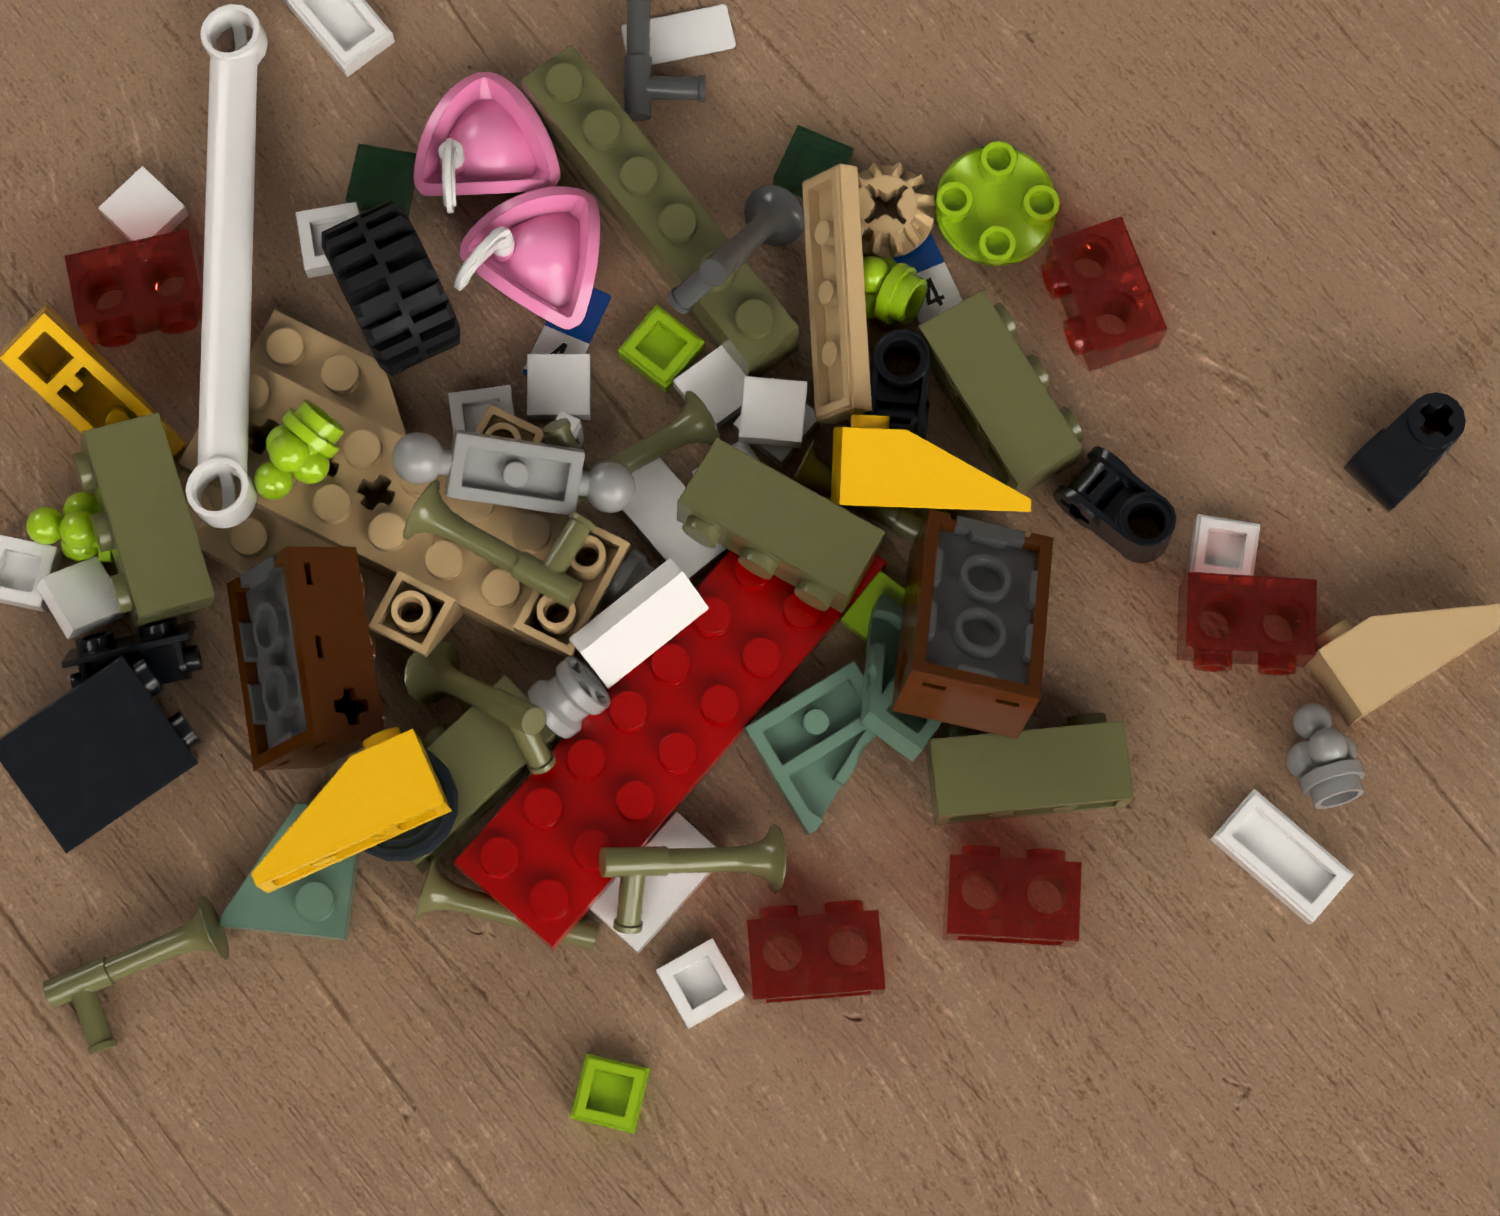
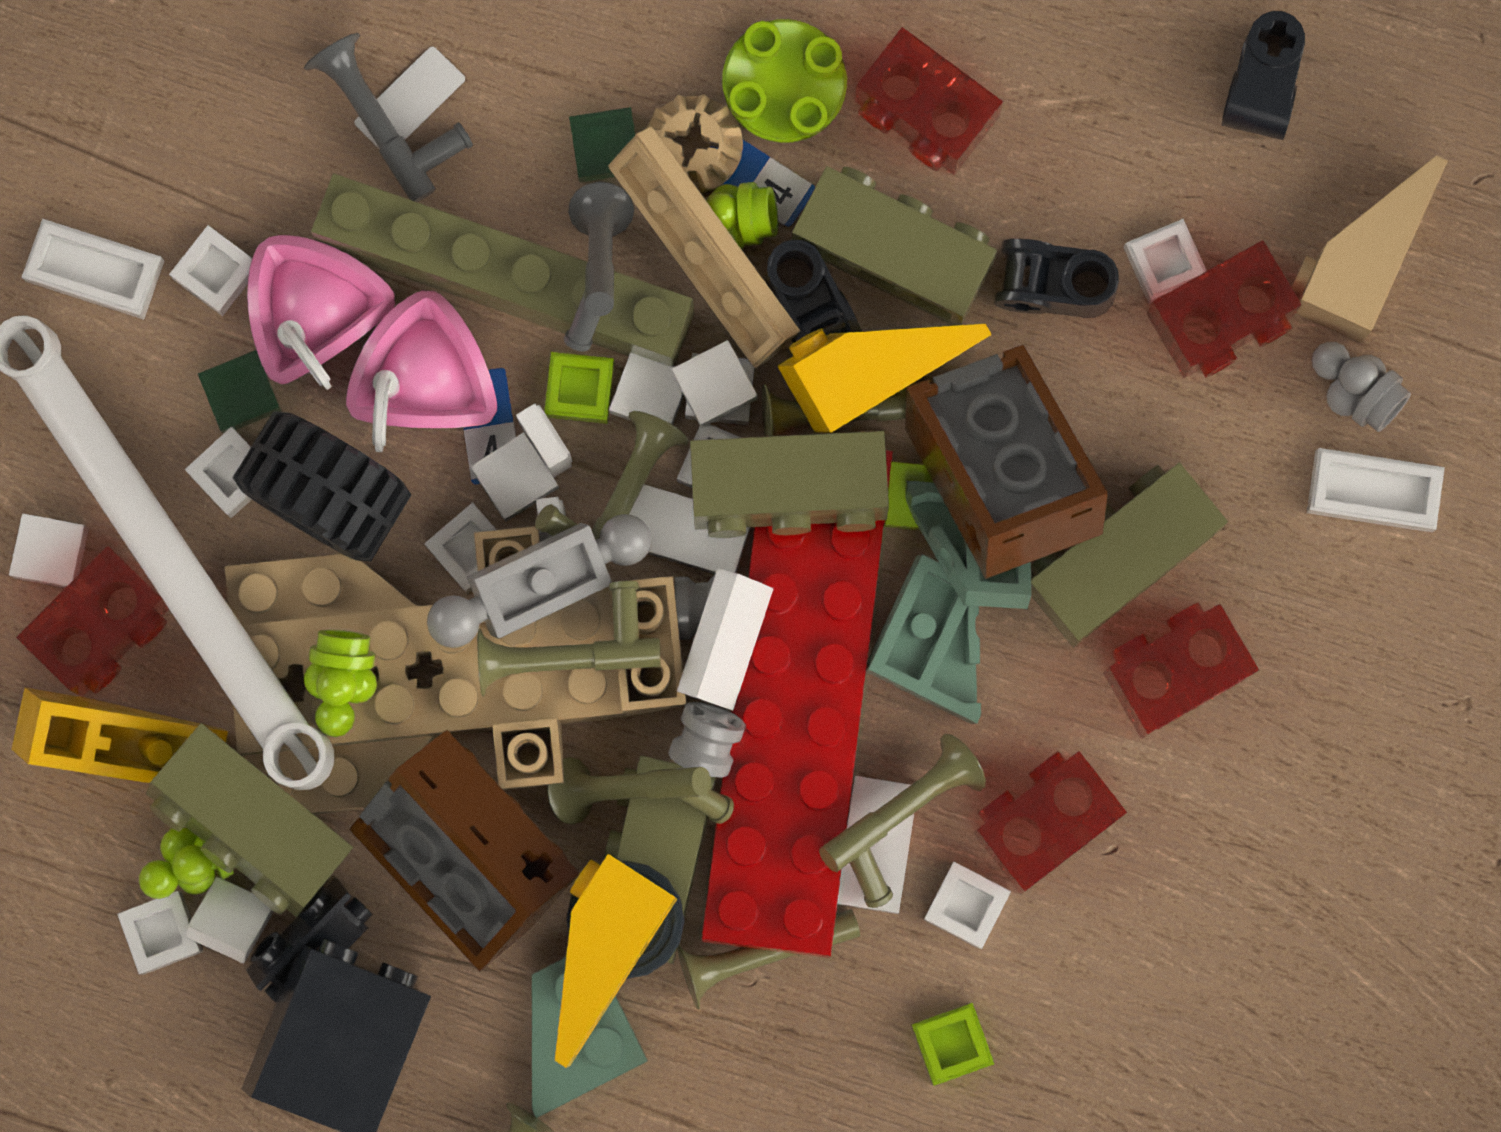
camera: 30 degrees left, 5 degrees up
(426, 70) = (213, 270): none -> white tile
(602, 370) = (545, 439): none -> white tile

